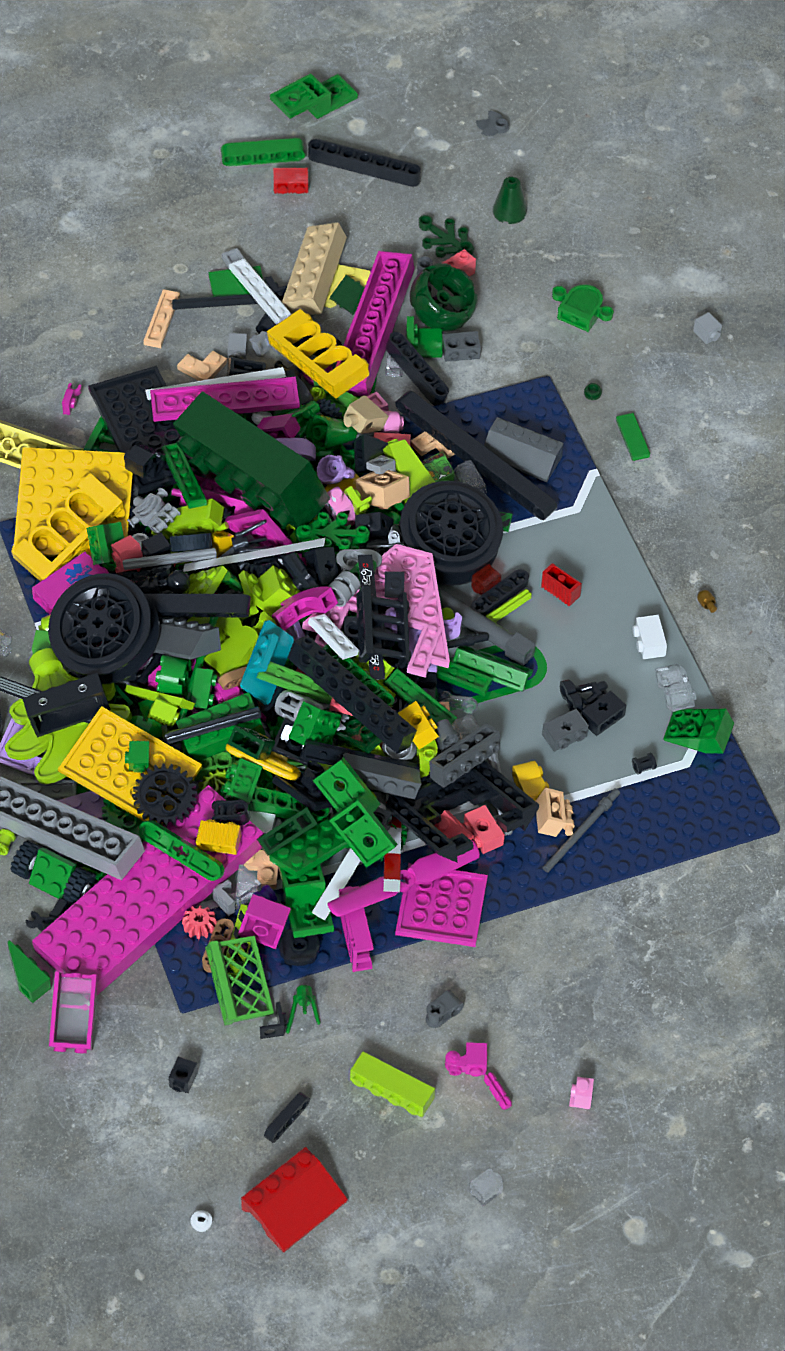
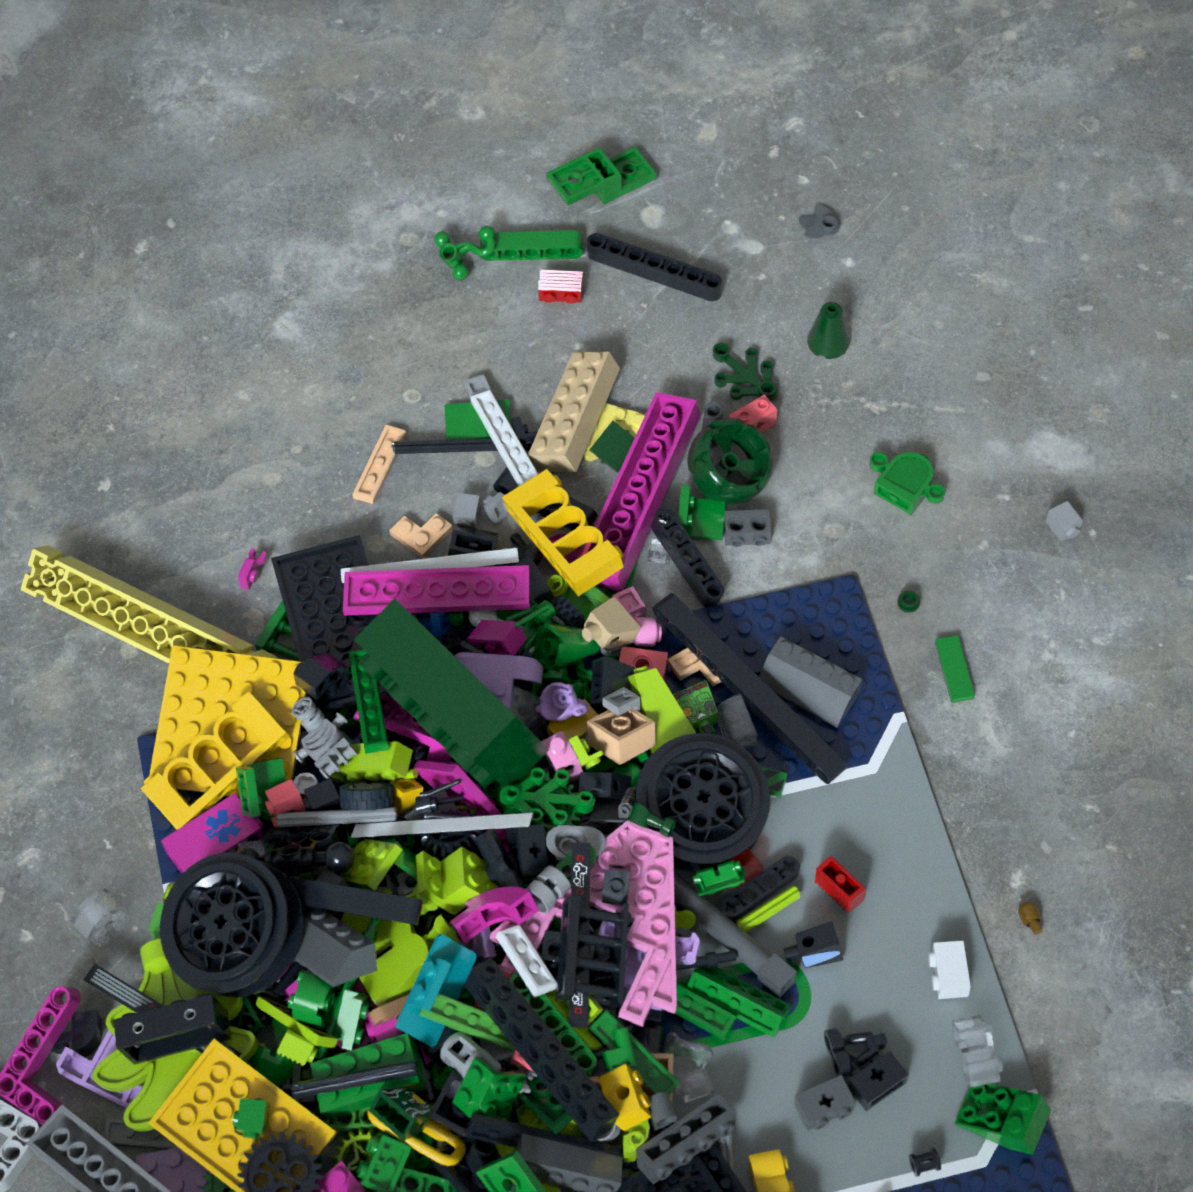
camera: 10 degrees right, 5 degrees up
(135, 487) = (308, 713): none -> light grey wheel
(207, 173) = (459, 270): none -> green piece
(408, 539) = (643, 817): none -> dark green leg
(412, 695) = (623, 1054): none -> green piece
(462, 587) = (730, 875): none -> green hinge
(548, 626) = (815, 946): none -> black torso

